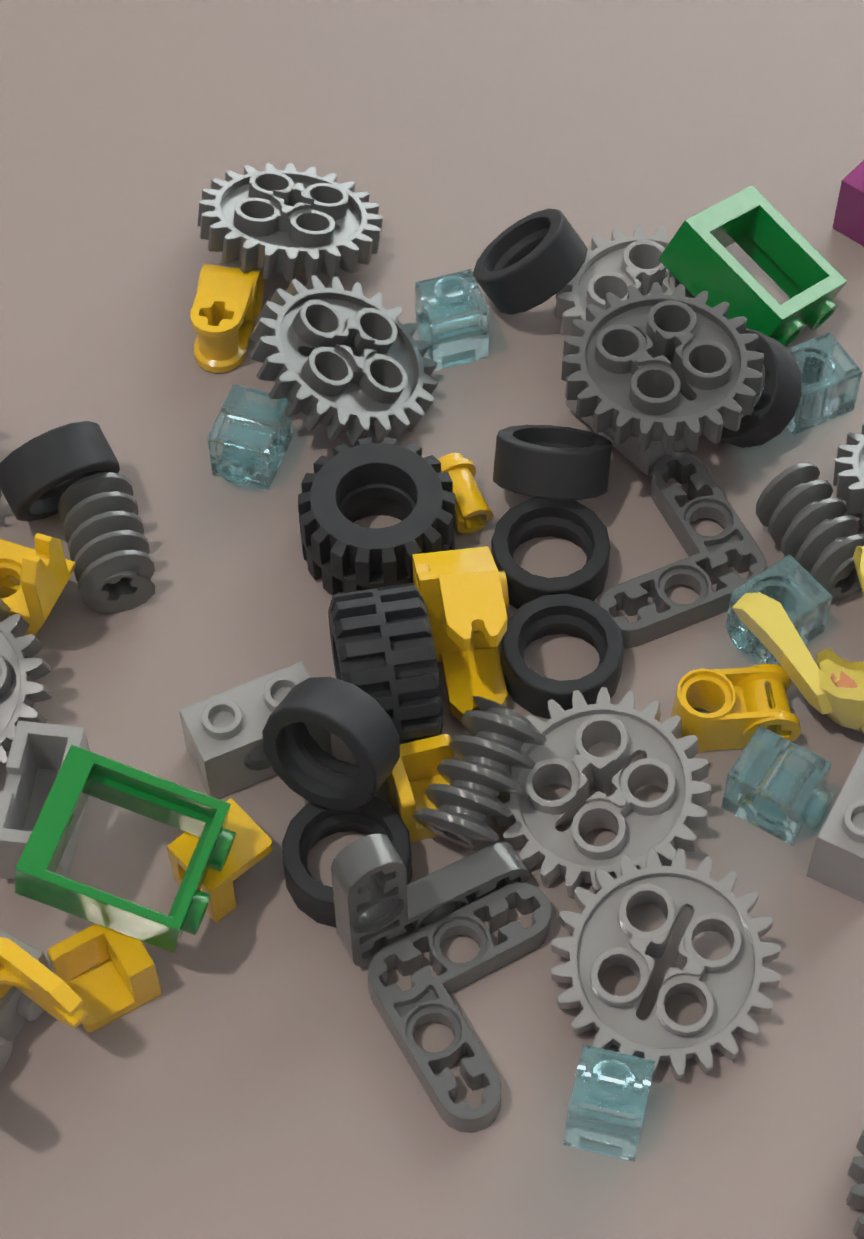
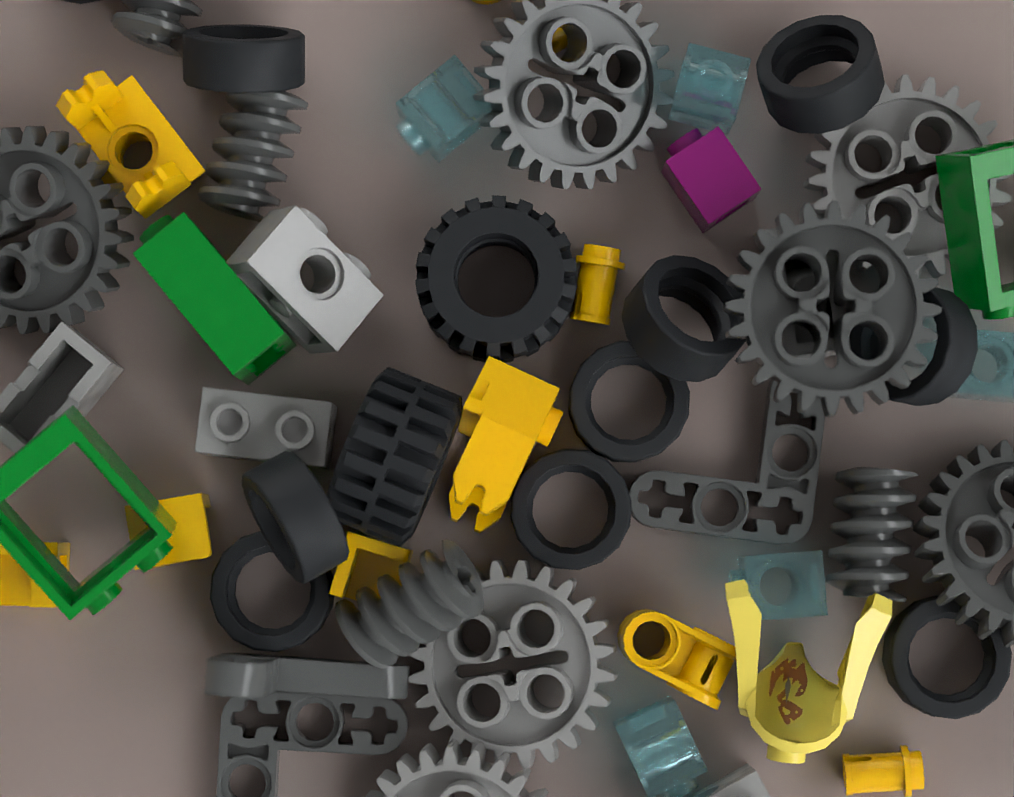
camera: 30 degrees right, 30 degrees up
(143, 642) = (212, 297): none -> green window
(214, 595) = (271, 267): none -> light grey brick
(497, 376) = (709, 177): none -> magenta brick

